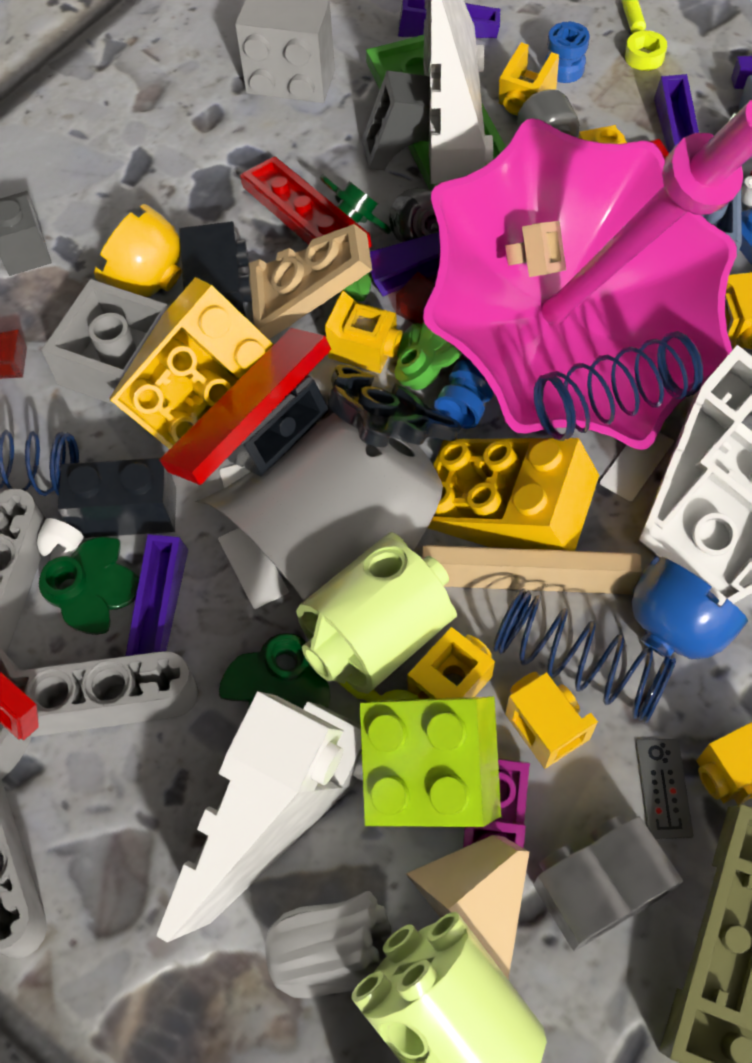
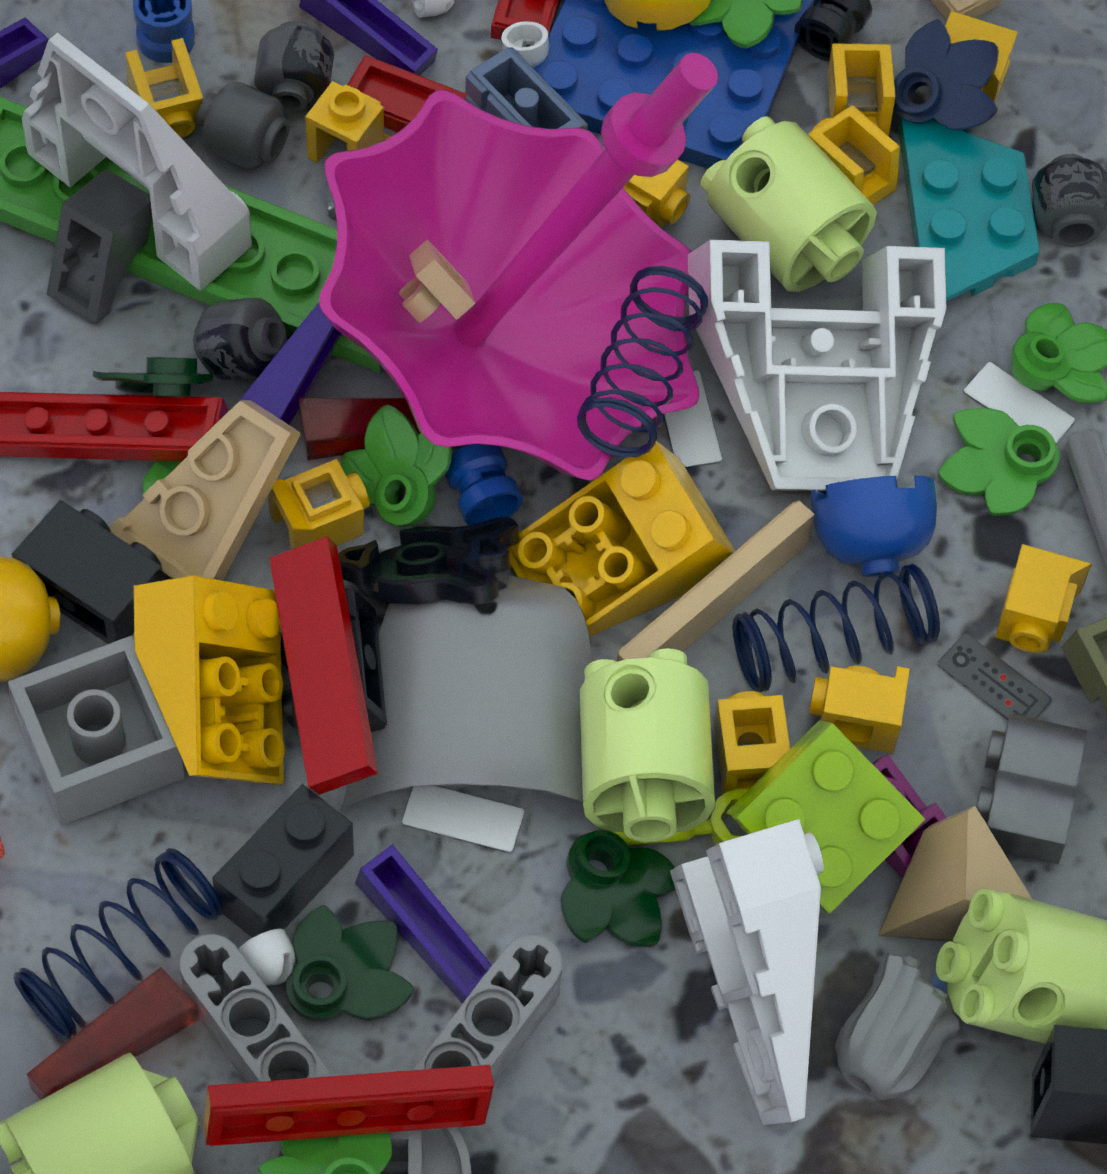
camera: 55 degrees left, 0 degrees up
(610, 106) = (294, 65): none -> dark grey head

